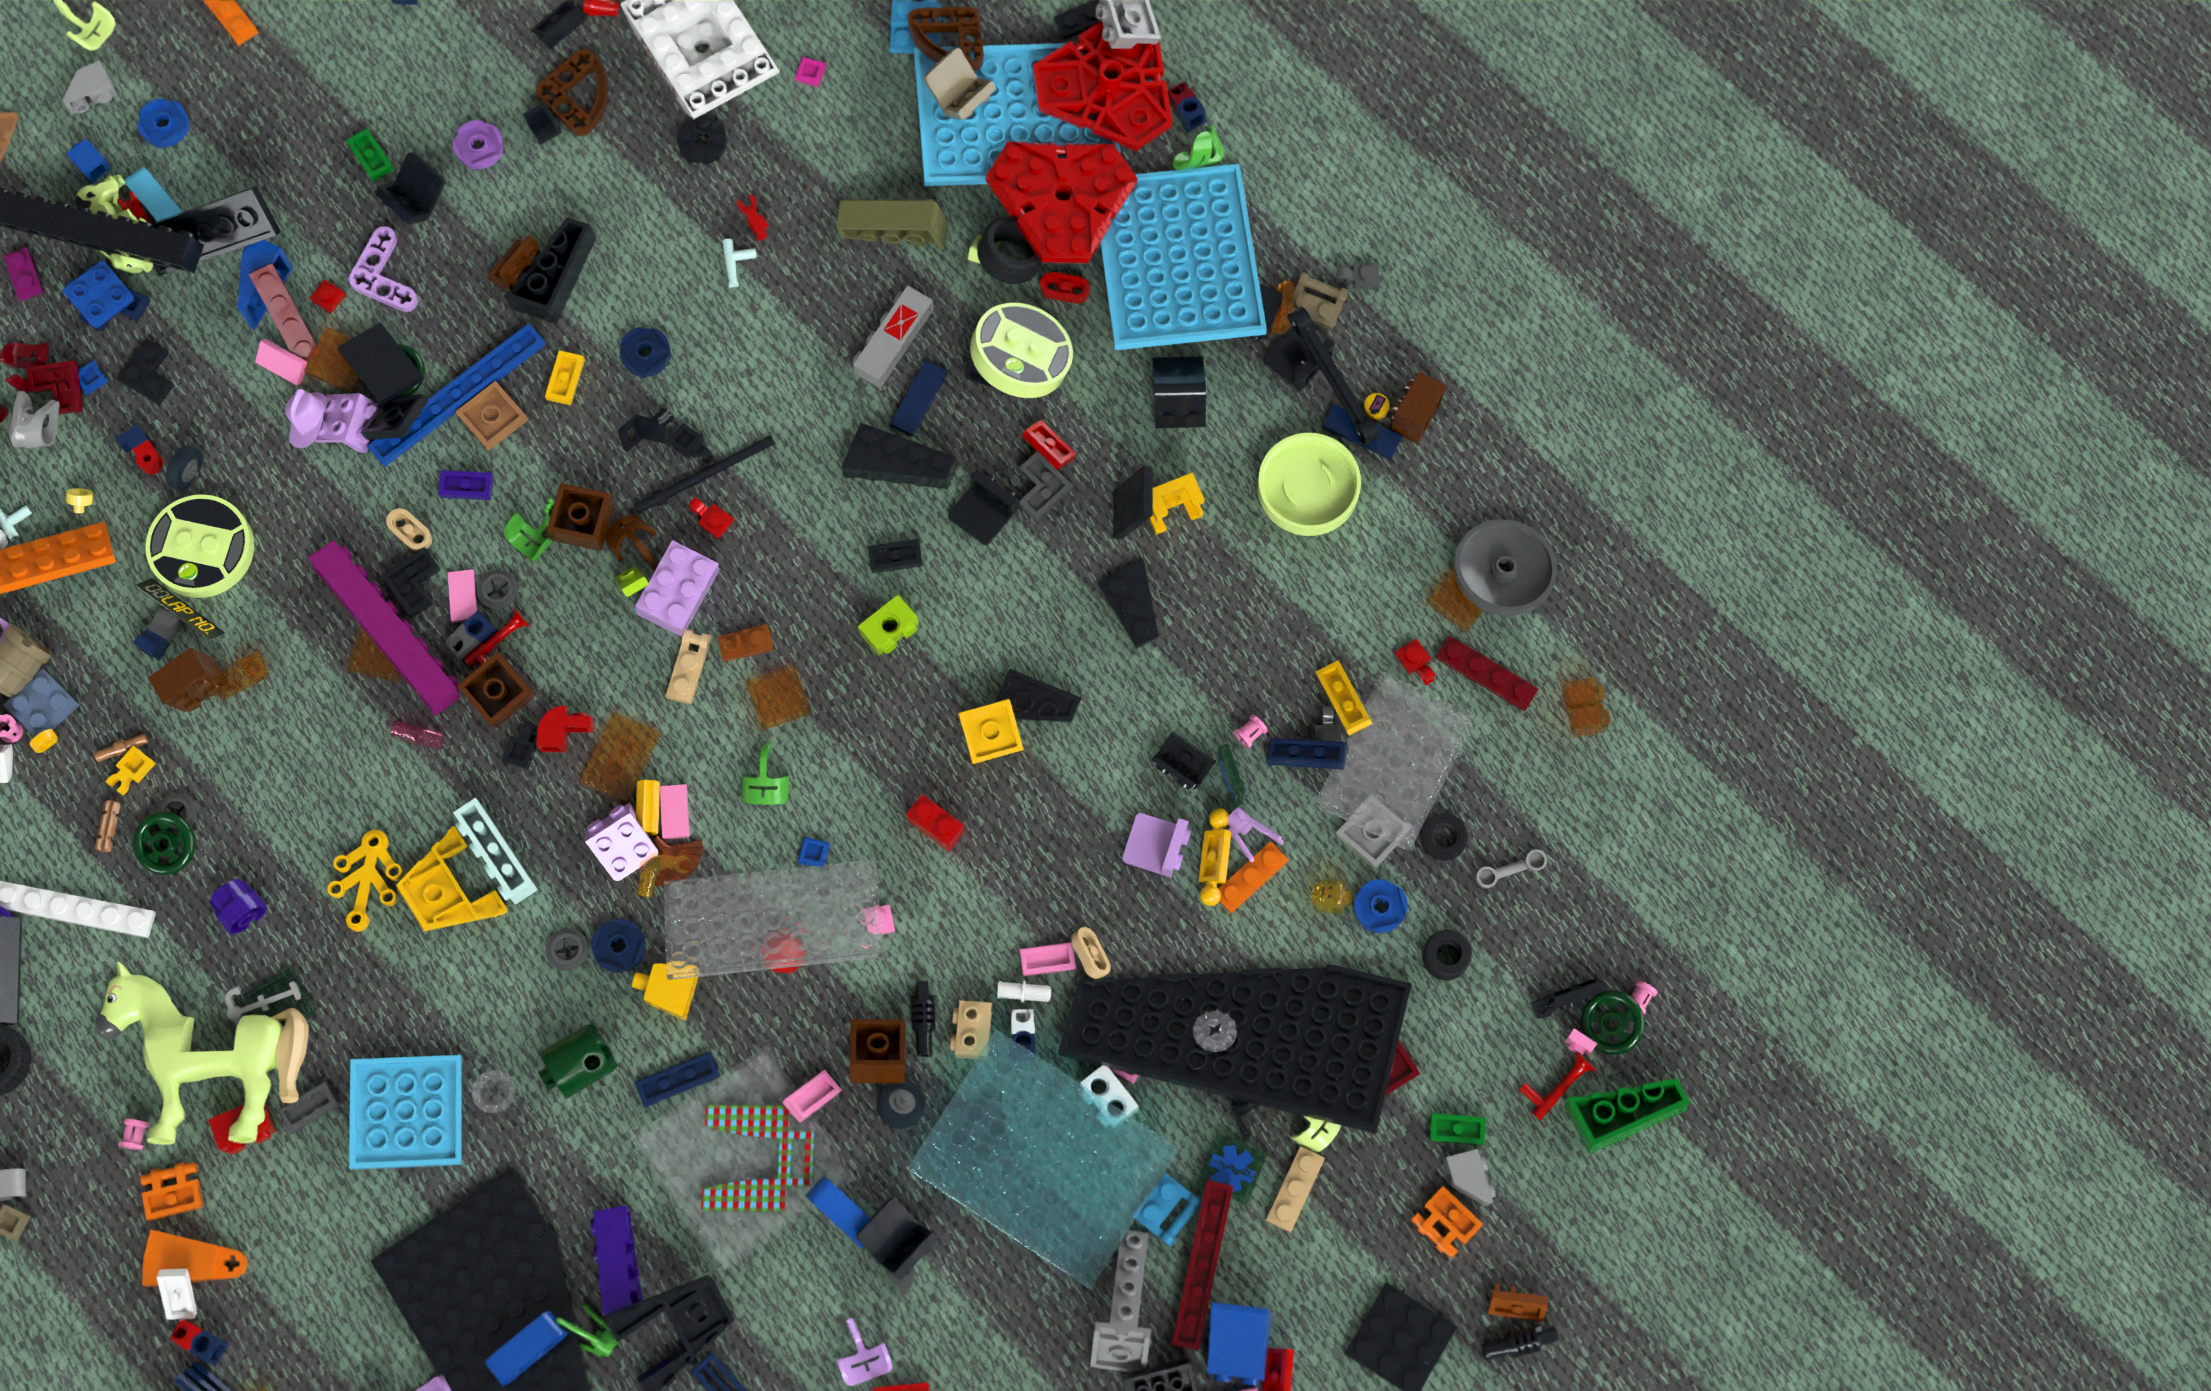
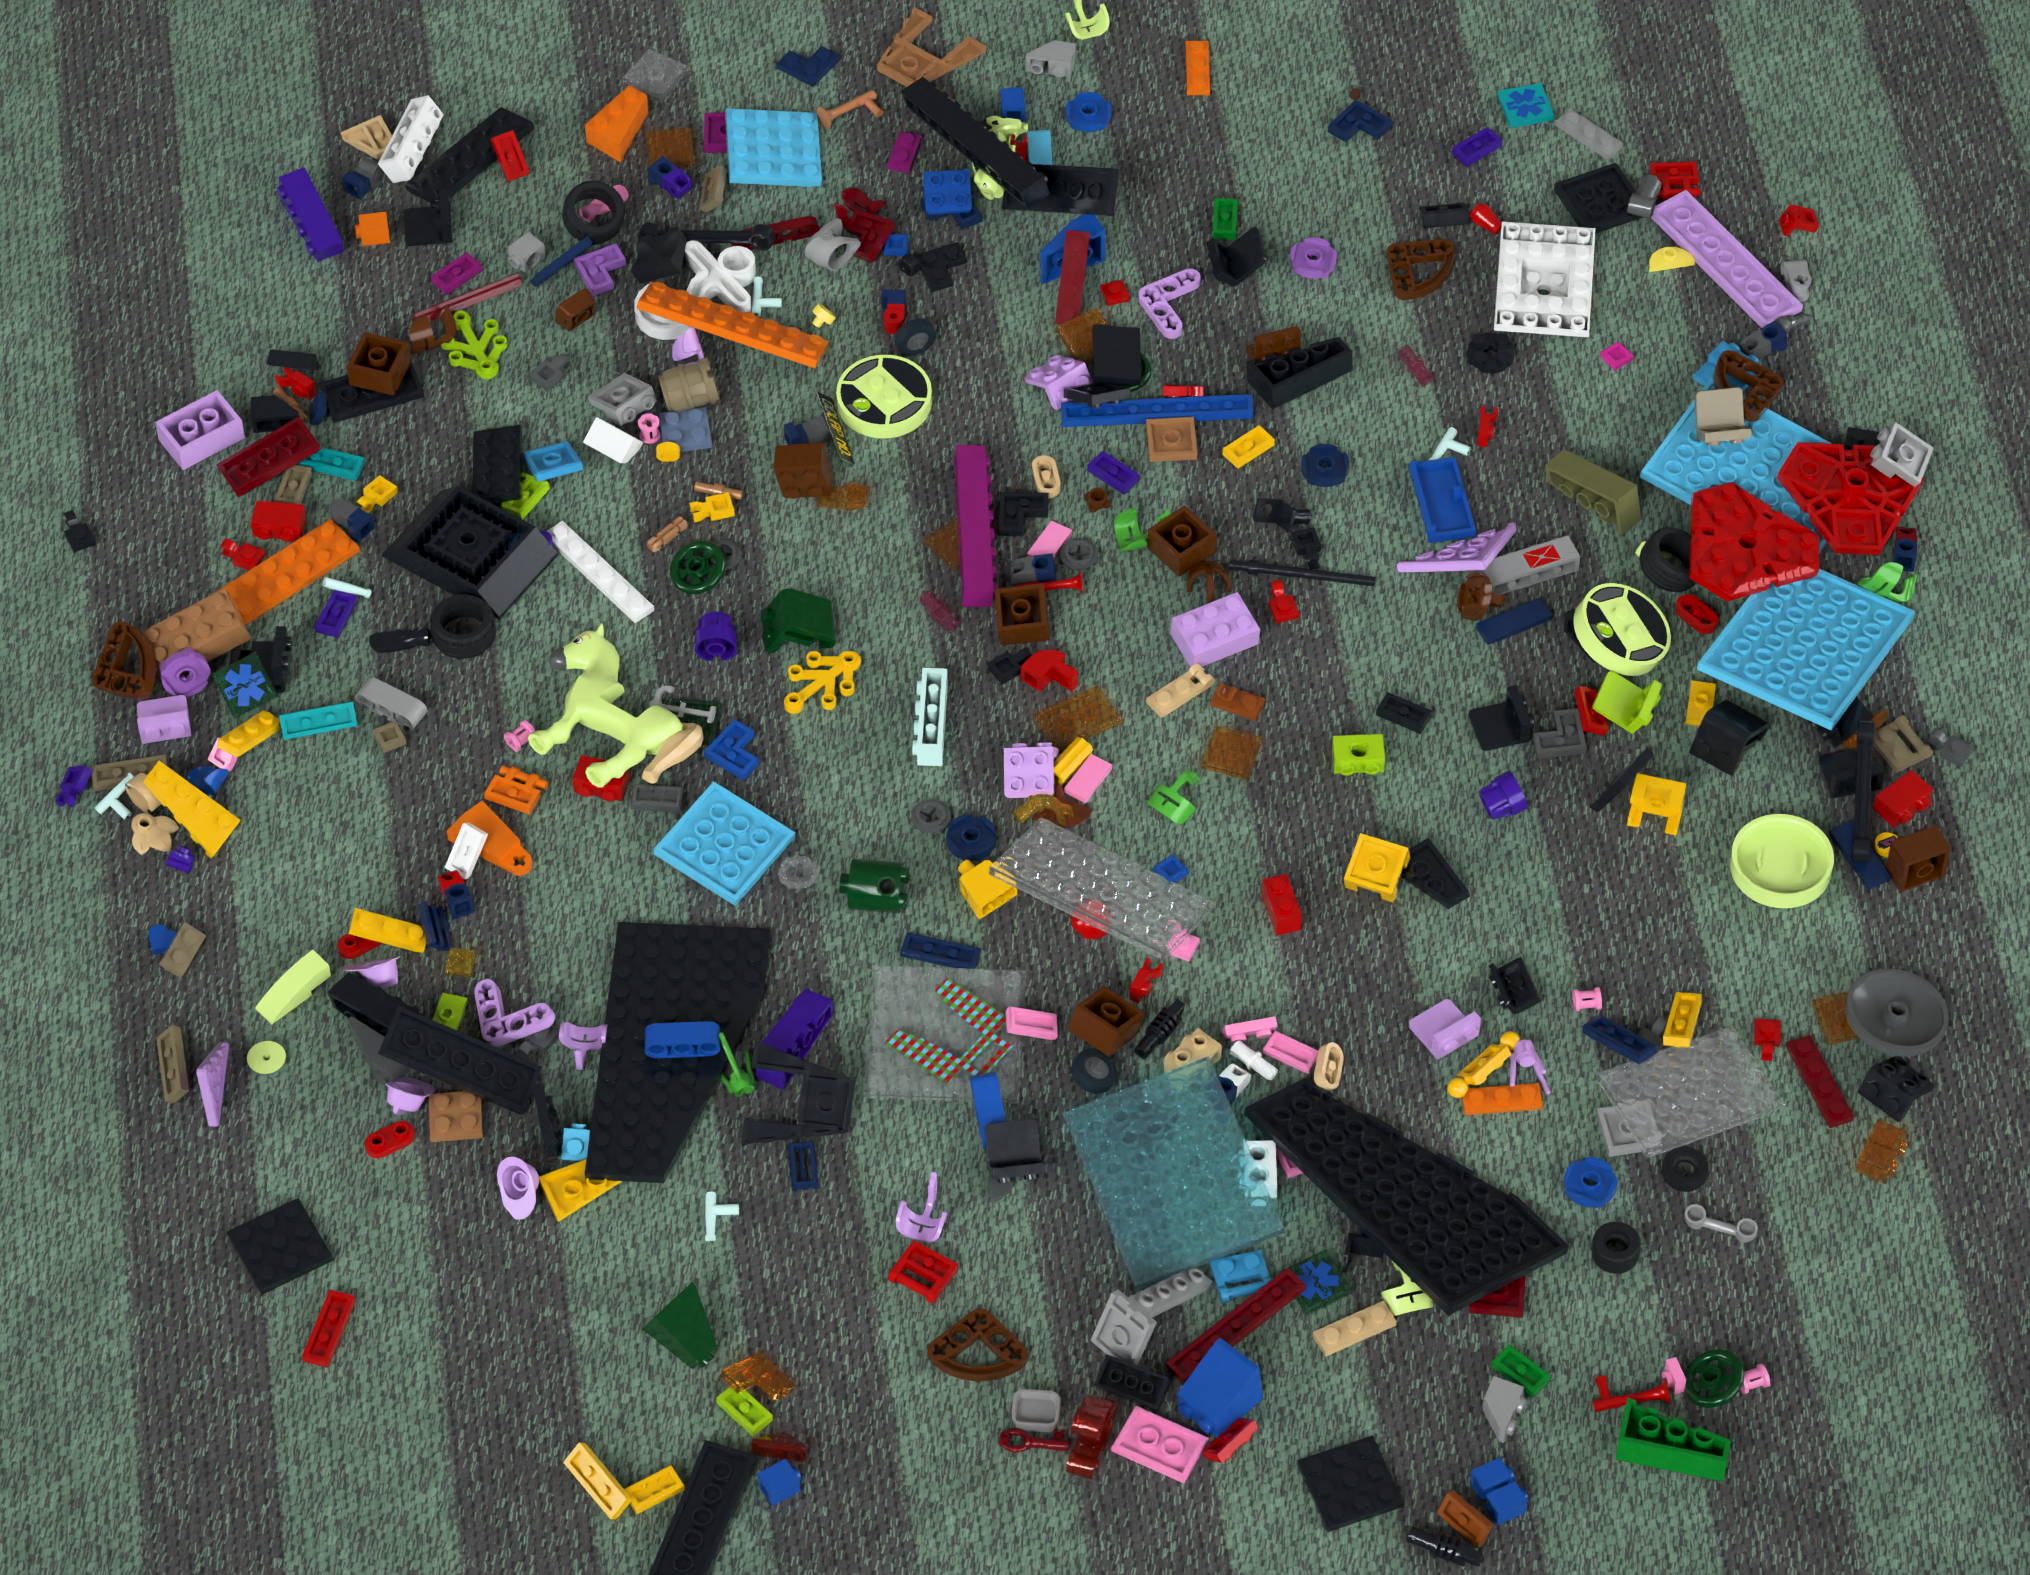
camera: 40 degrees right, 20 degrees down
(119, 392) = (909, 264): none -> black axle
(281, 361) = (1043, 313): bright pink tile -> none
(300, 837) = (797, 619): none -> dark green piece
(306, 415) = (1031, 357): lavender piece -> none
(335, 1014) = (729, 753): none -> blue plate
(436, 895) = (864, 721): yellow wing -> none
(463, 360) = (1176, 391): none -> red plate
(468, 516) = (1097, 494): none -> reddish brown plate
(542, 123) = (1374, 269): black panel -> none
(630, 581) = (1183, 602): lime plate -> none
(647, 197) = (1415, 366): none -> clear pink axle
(770, 318) = (1442, 500): none -> blue container
(832, 364) = (1462, 556): none -> lavender tile
(875, 399) = (1476, 596): none -> reddish brown tile
(876, 987) = (1141, 984): none -> red plate
(895, 459) = (1459, 647): black wedge -> none
(1006, 957) = (1261, 1028): none -> bright pink plate
(1042, 584) = (1503, 797): none -> dark purple piece
(1074, 416) = (1626, 702): none -> lime bracket
(1130, 373) = (1700, 701): none -> yellow plate
(1132, 603) = (1566, 857): black wing -> none
(1216, 1042) = (1377, 1177): clear gear -> none
(1230, 775) = (1543, 1012): clear green tile -> none
(1331, 896) = (1555, 1148): clear yellow head -> none
(1360, 355) = (1903, 799): none -> red brick
(1452, 1216) = (1466, 1427): orange plate -> none
(1538, 1263) = (1496, 1484): none -> blue piece
(1551, 637) = (1894, 1087): none -> black bracket
(1567, 997) = (1688, 1338): black hinge -> none

